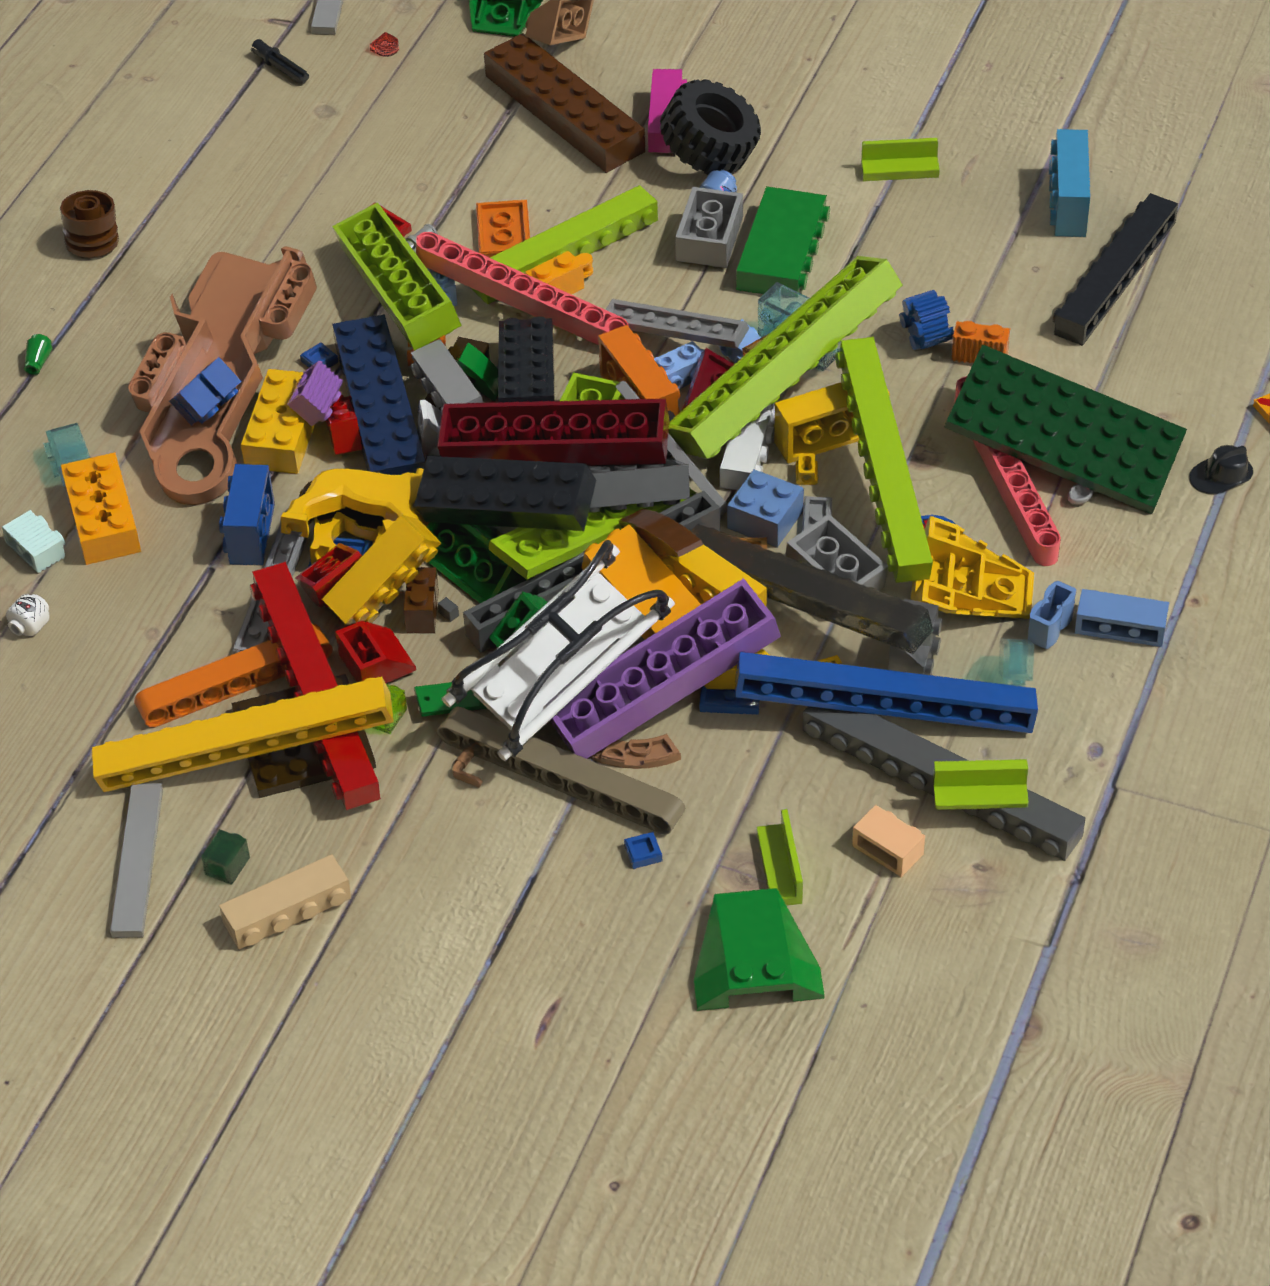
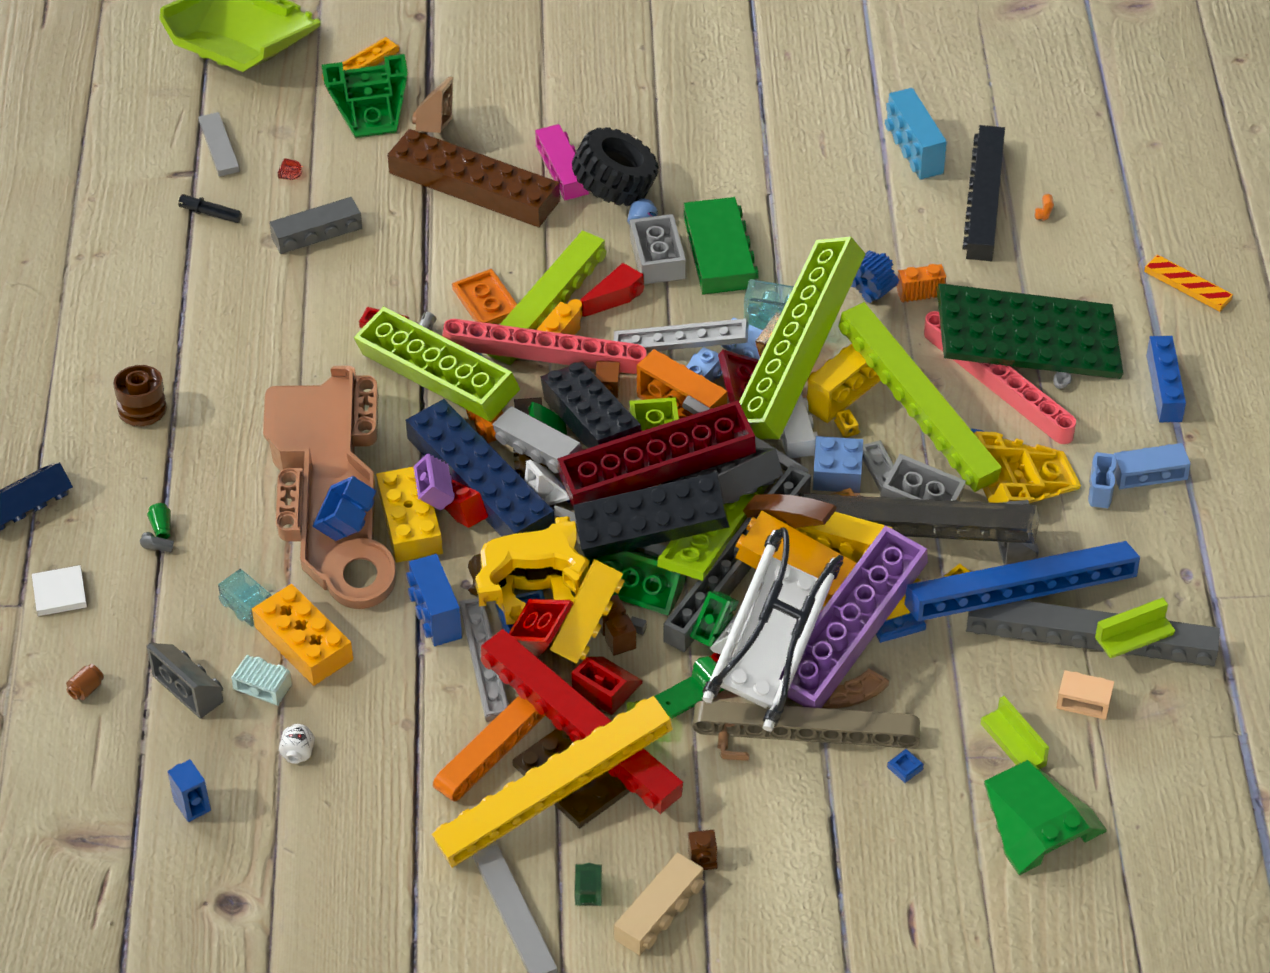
camera: 25 degrees left, 0 degrees up
(16, 372) = (149, 541): none -> dark grey arm
(319, 353) = (401, 452): blue tile -> none
(365, 862) = (703, 849): none -> reddish brown brick
(373, 106) = (315, 225): none -> dark grey brick
(574, 346) = (609, 375): none -> dark orange brick
(639, 257) = (614, 290): none -> red slope
(900, 159) = (769, 151): lime panel -> none
(1016, 661) = (1101, 524): clear light blue brick -> none
(1179, 304) = (1048, 204): none -> orange arm
(1198, 528) = (1166, 379): none -> blue brick
(1222, 471) = (1153, 322): black piece -> none

